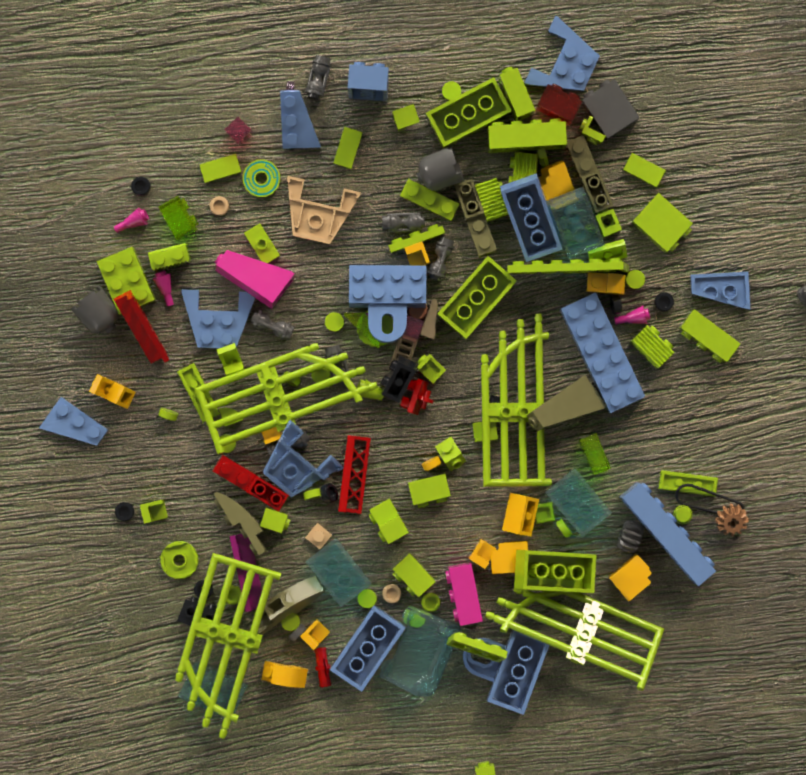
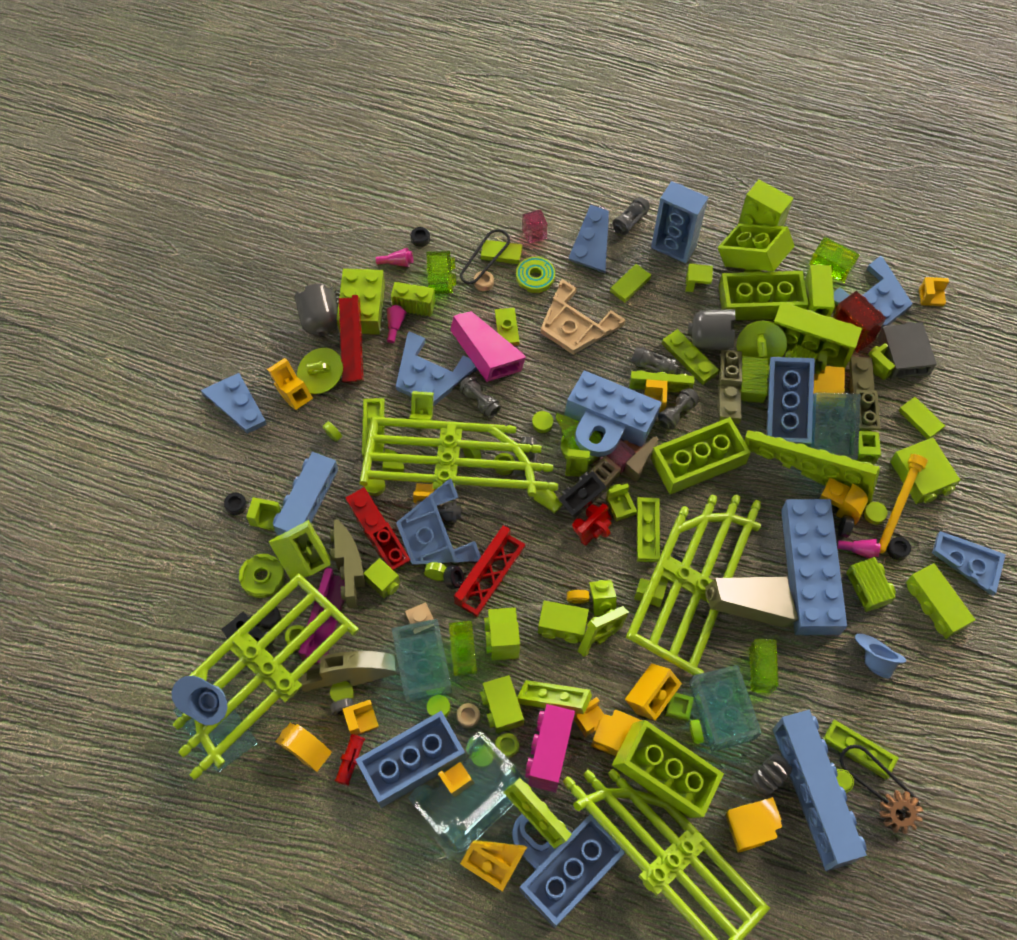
camera: 25 degrees right, 25 degrees down
(126, 362) = (320, 370): none -> lime shield
(178, 481) = (307, 493): none -> medium blue brick
(201, 687) = (199, 700): none -> medium blue piece
(204, 531) = (300, 551): none -> lime slope
(218, 185) = (493, 260): none -> black piece
(364, 548) = (462, 648): none -> clear neon green brick
(381, 353) = (577, 462): none -> lime tile
(407, 646) = (456, 779): none -> yellow panel
(438, 33) = (765, 206): none -> lime brick
(444, 69) = (756, 247): none -> lime brick
(450, 553) = (540, 694): none -> lime plate
(459, 485) = (602, 628): none -> lime wing
(460, 689) = (493, 861): none -> yellow wing
(461, 380) = (648, 529): none -> lime plate
(486, 165) = (762, 340): none -> lime shield
(516, 41) = (837, 256): none -> clear neon green brick
(614, 34) = (932, 291): none -> yellow panel
(652, 229) = (916, 464): none -> yellow piece
(678, 404) = (878, 656): none -> medium blue piece

